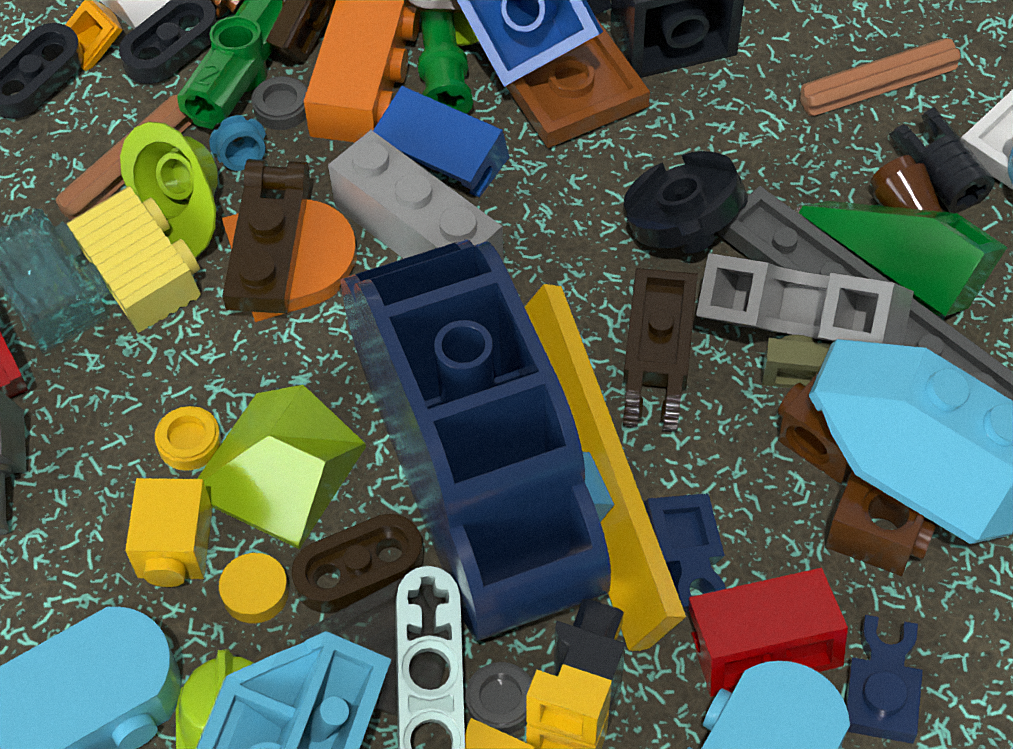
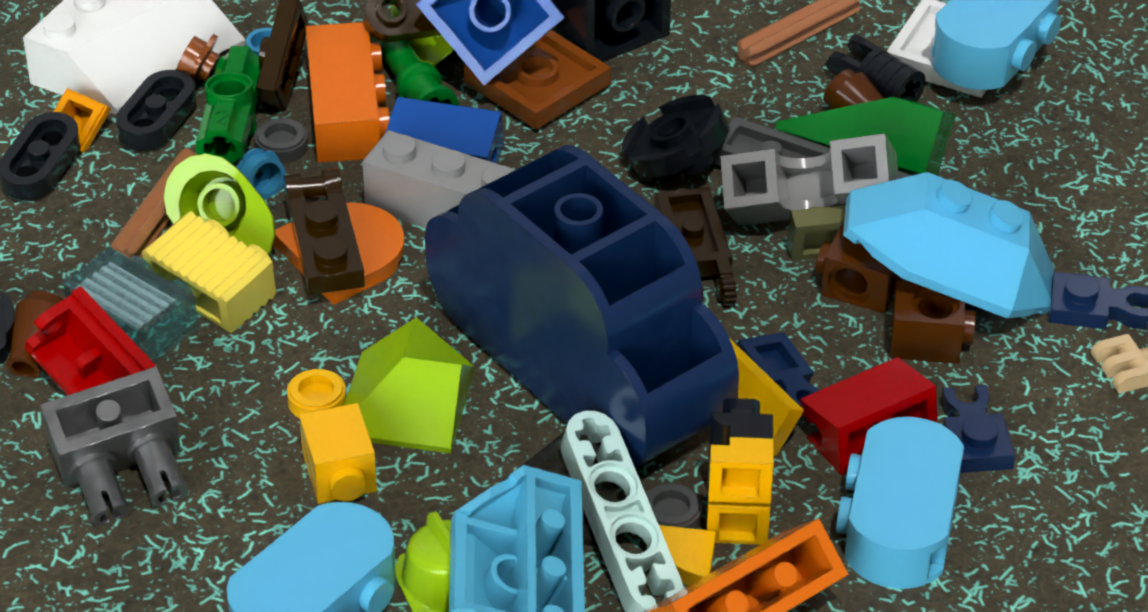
camera: 20 degrees left, 15 degrees down
(253, 588) = (426, 484): yellow tile -> none
(355, 559) = (502, 444): dark brown plate -> none

